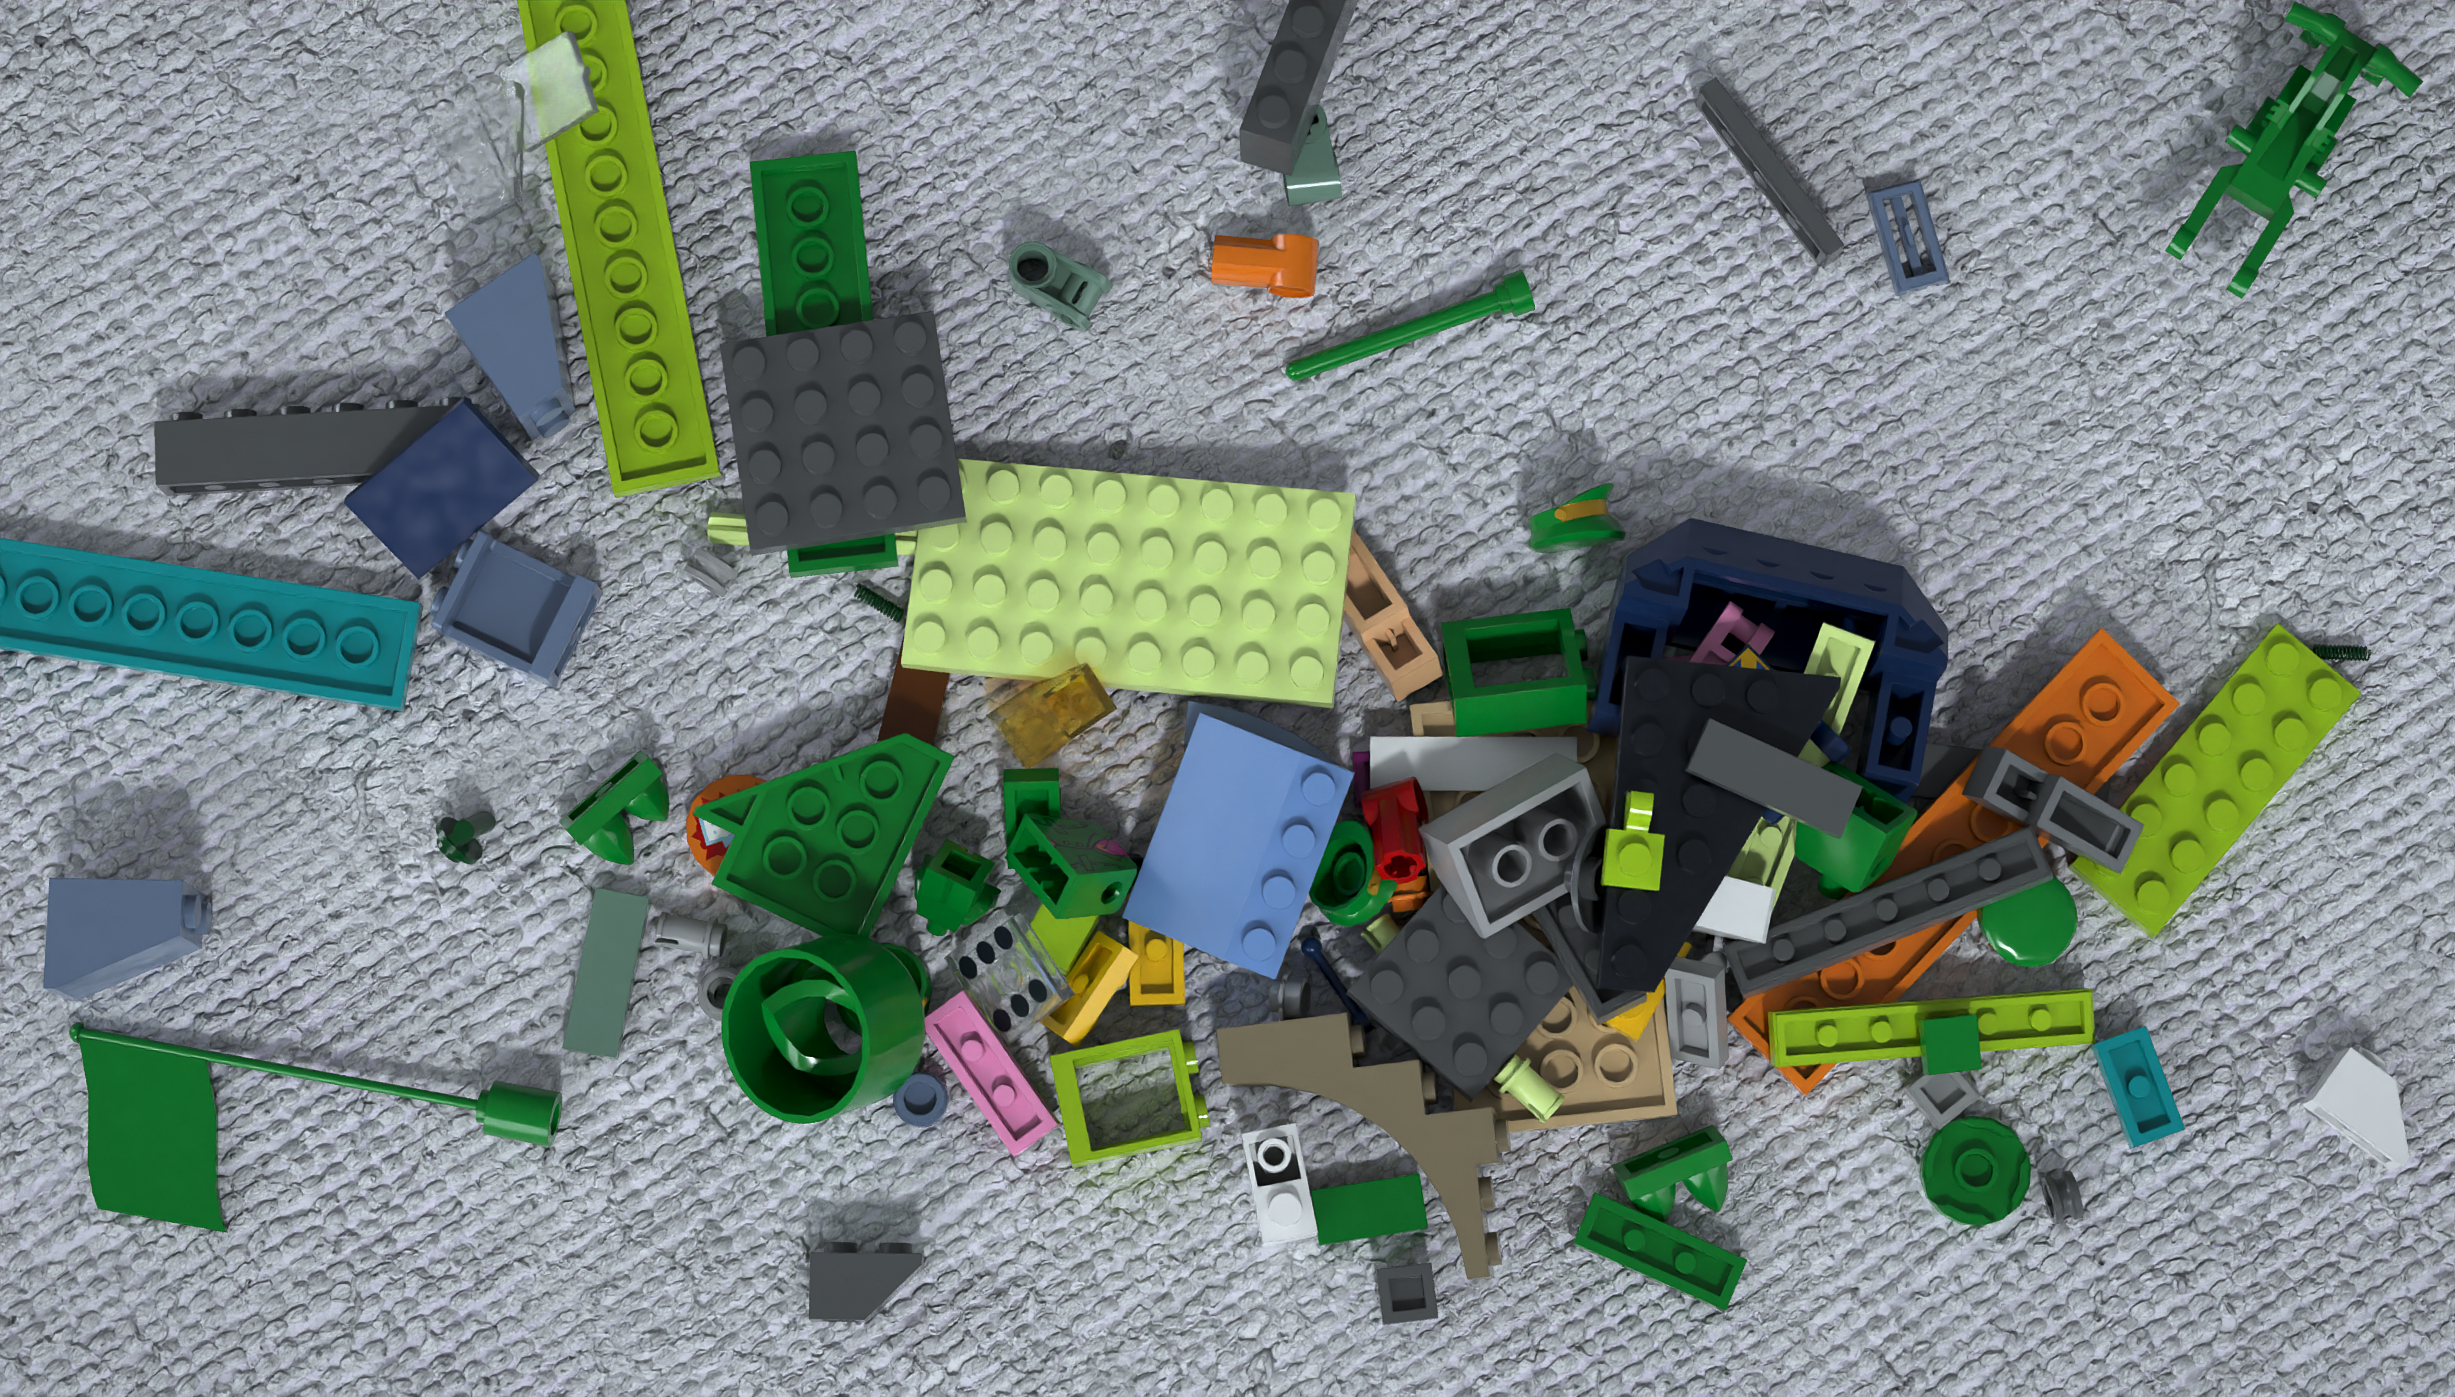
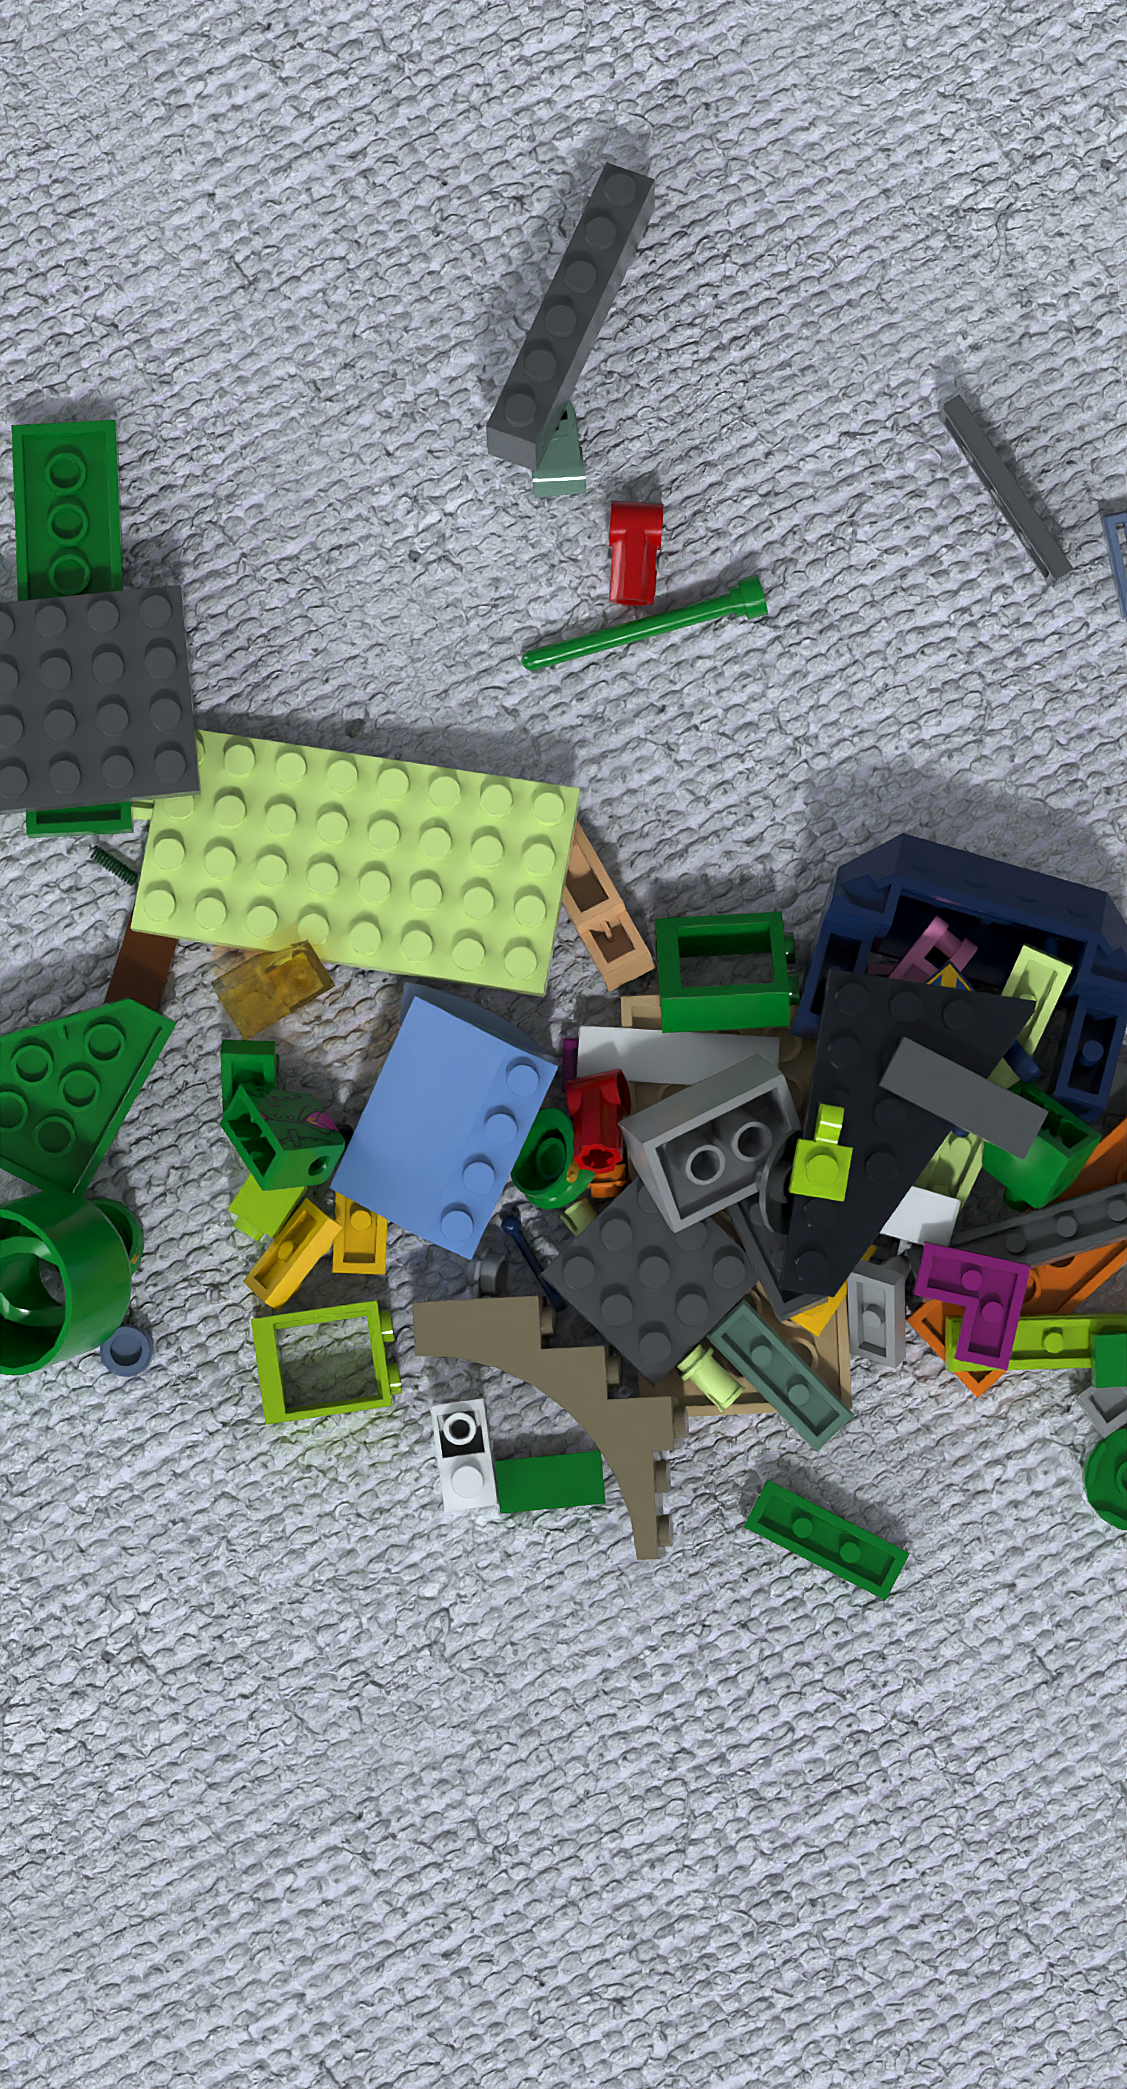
camera: 10 degrees right, 5 degrees up
(858, 1285) = (53, 1525): dark grey slope -> none
(953, 888) = (169, 1150): green piece -> none
(990, 1073) = (194, 1329): bright pink plate -> none
(1009, 974) = (217, 1238): clear tile -> none
(1060, 285) = (307, 563): sand green piece -> none
(1281, 265) = (522, 555): orange piece -> none
(1395, 240) = (635, 541): none -> red piece
(1407, 1293) = (581, 1565): dark grey plate -> none
(1576, 524) = (793, 829): green piece -> none
(1600, 1083) = (780, 1375): none -> sand green tile
(1695, 1159) = (865, 1452): green tile -> none
(1811, 977) = (988, 1289): none -> magenta plate

